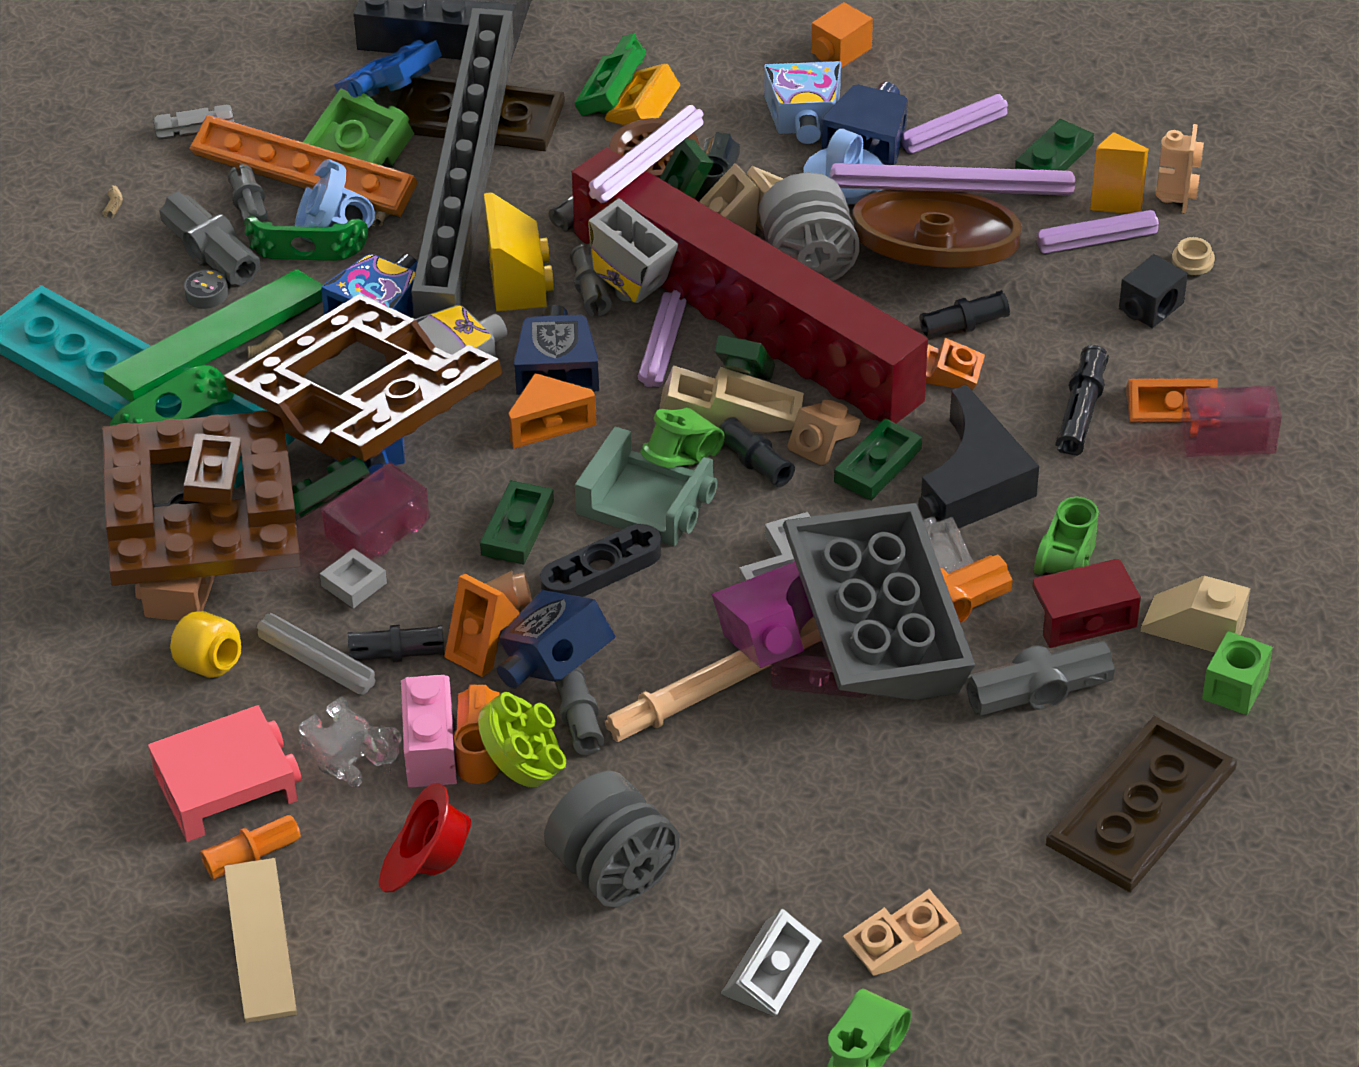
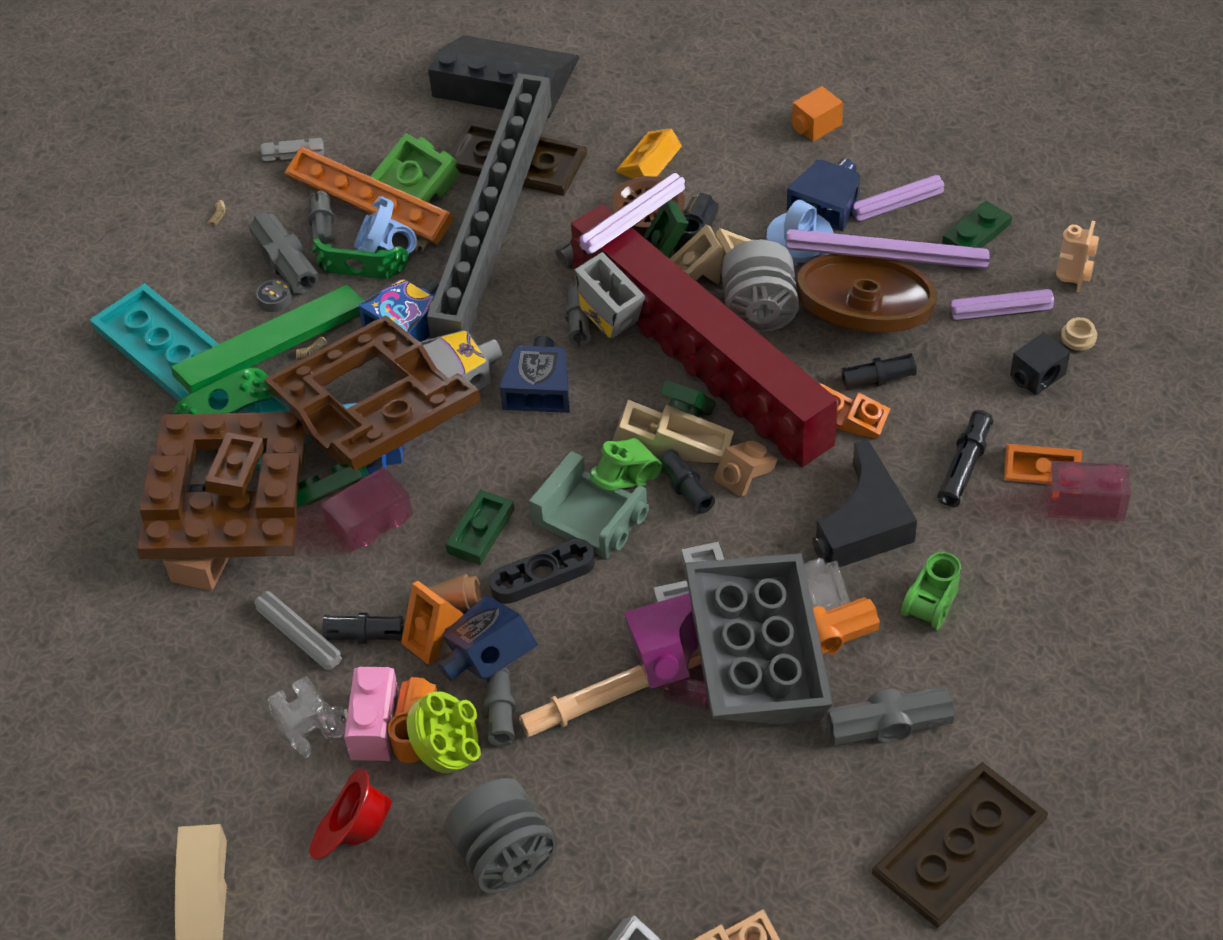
camera: 10 degrees right, 5 degrees up
(205, 644) = (209, 614): yellow head -> none
(222, 767) = (200, 730): coral panel -> none
(250, 845) = (210, 803): orange axle -> none
(353, 578) = (339, 565): light grey plate -> none
(391, 70) = (449, 119): blue plate -> none
(516, 257) = (519, 289): yellow slope -> none
(550, 410) = (523, 429): orange slope -> none
(611, 77) = (626, 135): green hinge -> none
(662, 339) = (627, 371): lavender axle -> none
(801, 96) = (776, 164): light blue torso -> none
(878, 459) = (785, 497): dark green plate -> none
(1087, 602) = (939, 649): dark red panel -> none
(1119, 175) = (1025, 258): light orange slope -> none
(1198, 612) = (1035, 670): tan slope -> none
(1237, 672) = (1058, 743): bright green brick -> none

